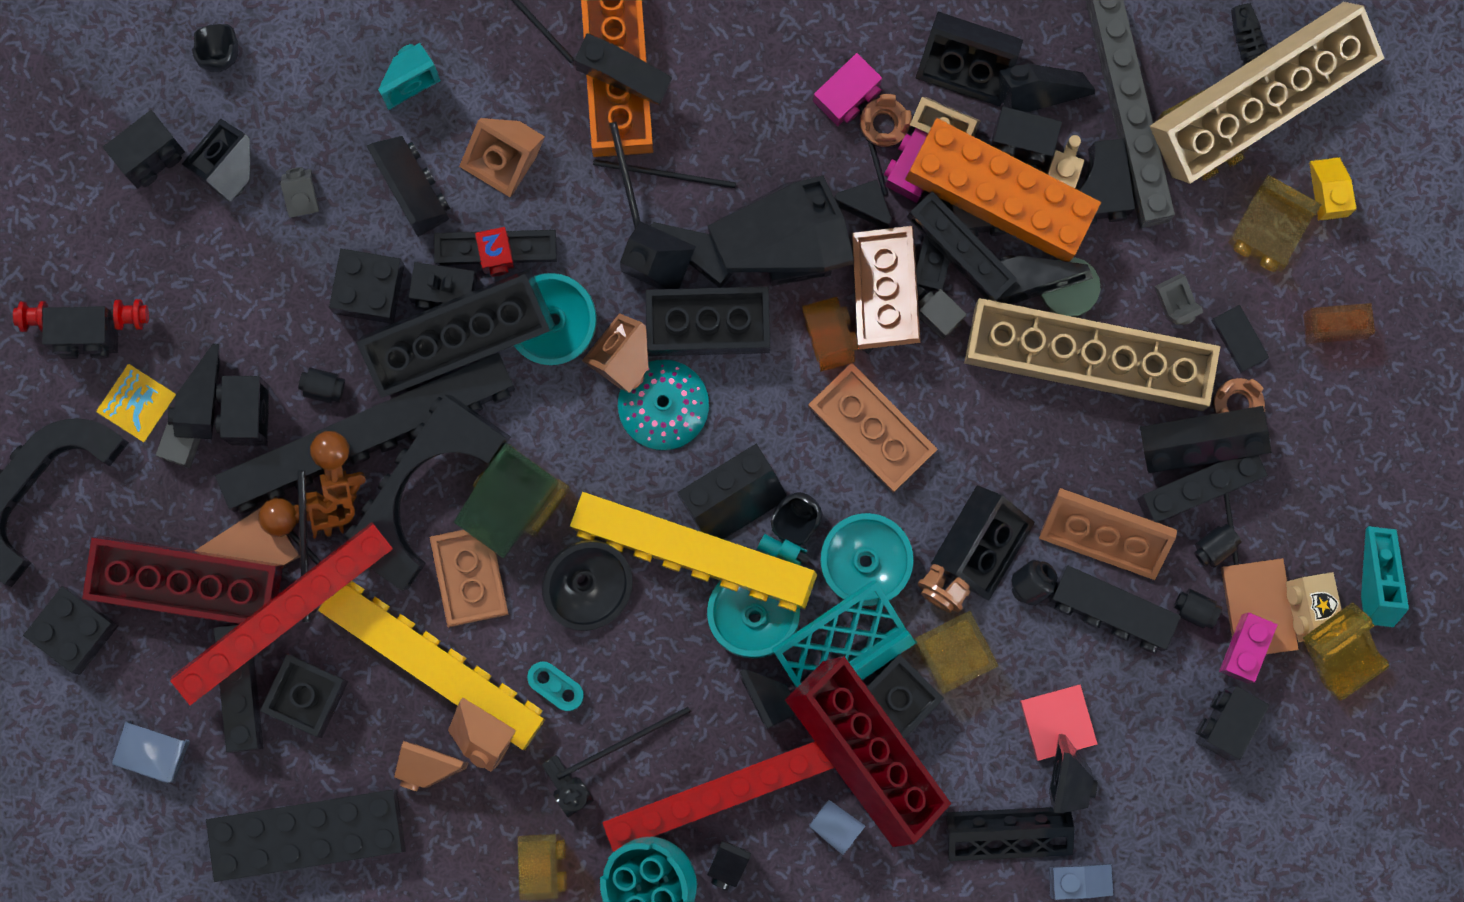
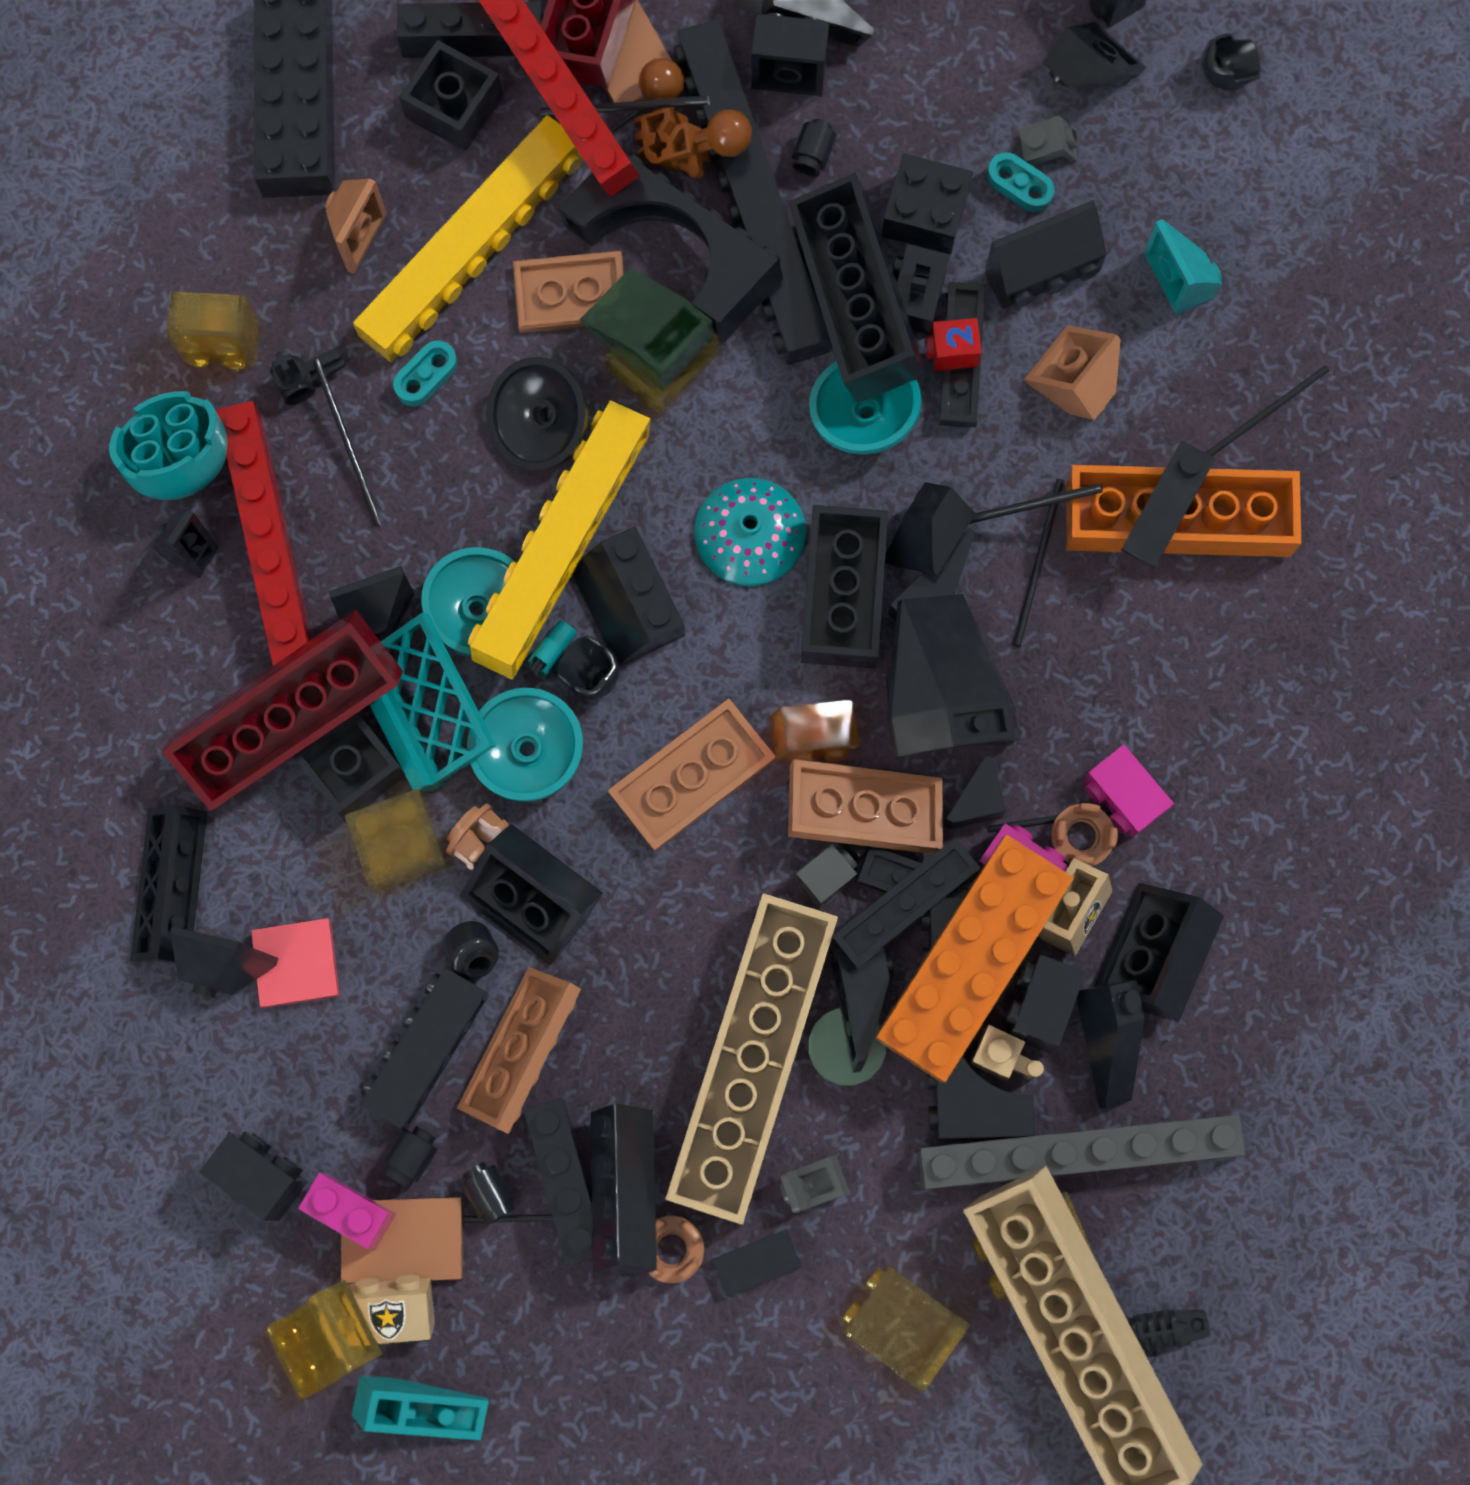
camera: 100 degrees right, 5 degrees down
(336, 212) = (1023, 181): none -> teal plate
(480, 735) = (368, 274): nougat slope -> none
(621, 353) = (811, 478): nougat slope -> none
(836, 827) = (205, 670): sand blue piece -> none
(1080, 881) = (93, 963): sand blue slope -> none
(1332, 188) = (947, 1415): yellow slope -> none
(1339, 323) = (761, 1397): clear orange brick -> none

